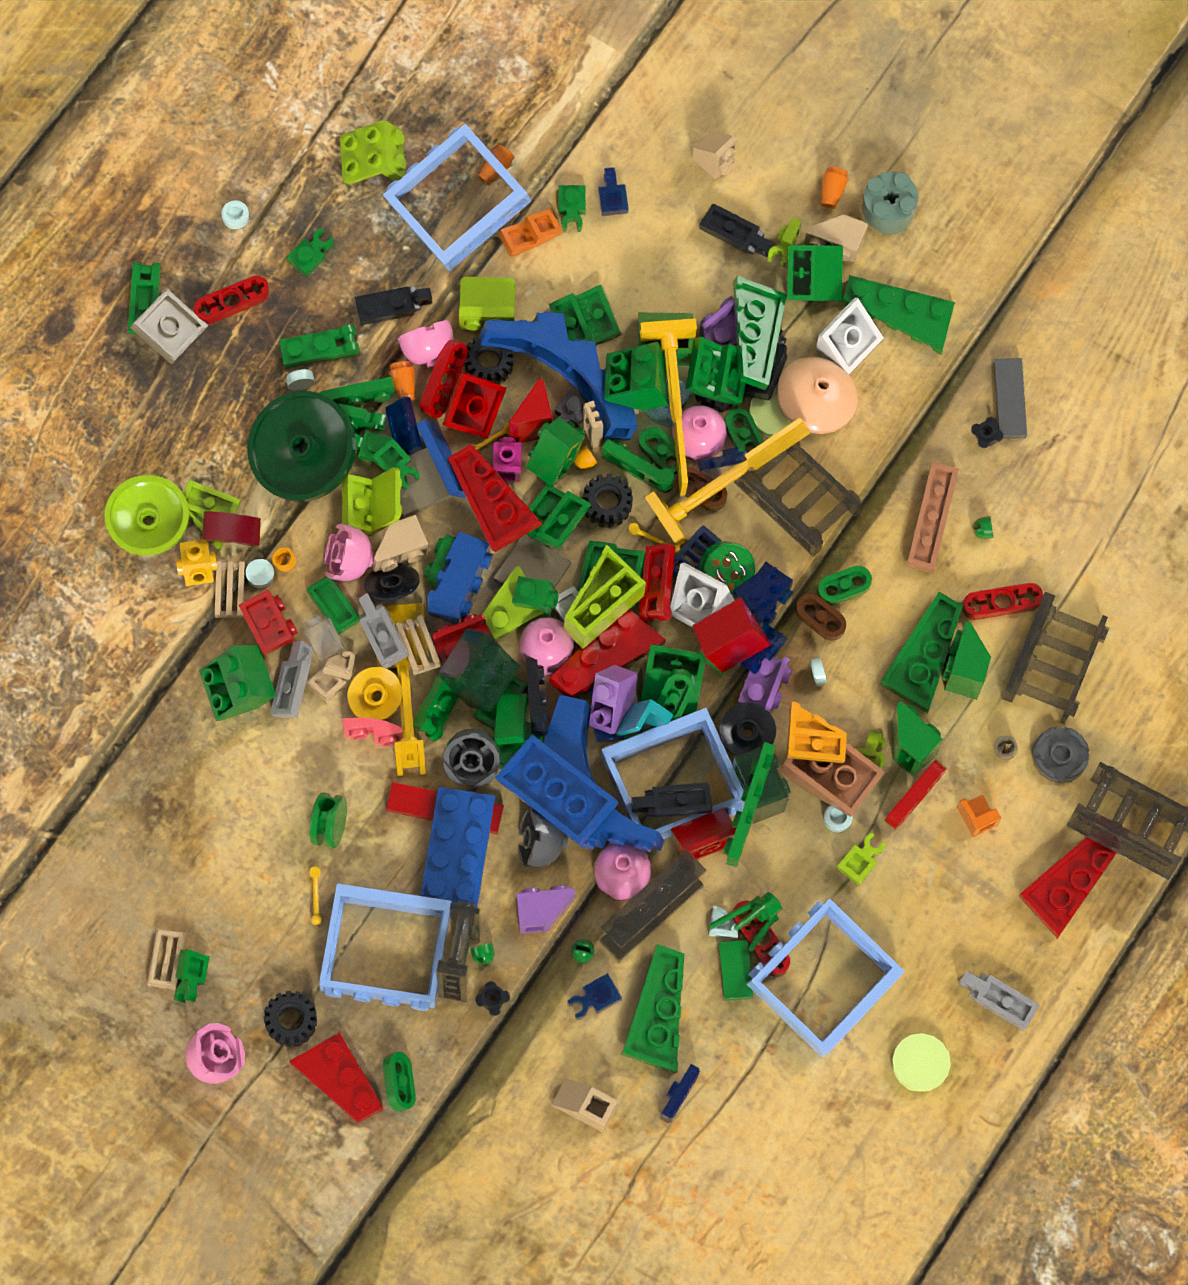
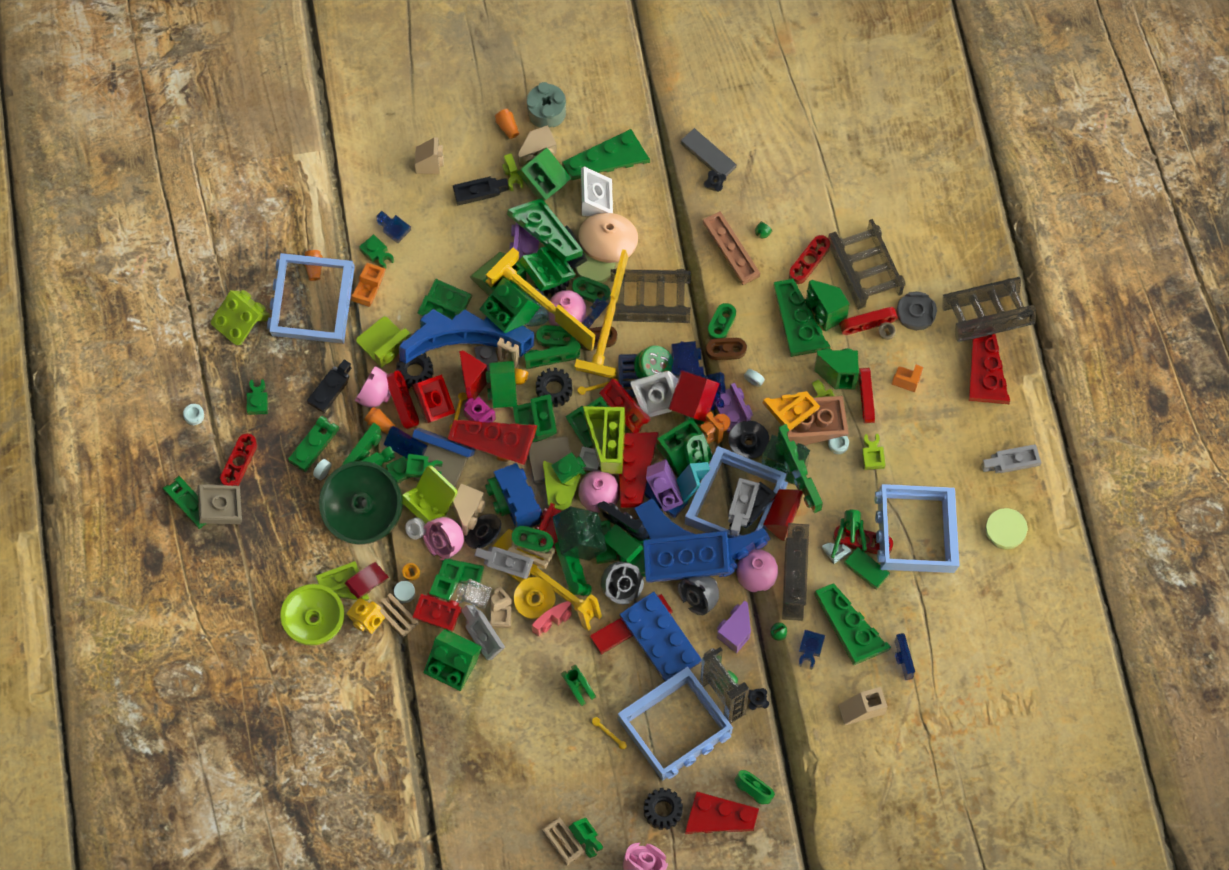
camera: 40 degrees left, 5 degrees down
(307, 600) = (447, 580): none -> green slope
(329, 519) = (415, 528): none -> white tile
(426, 635) = (533, 539): none -> green plate
(663, 789) = (742, 504): none -> light grey hinge
(718, 686) = (714, 427): none -> orange hips
(997, 719) = (868, 320): none -> red beam

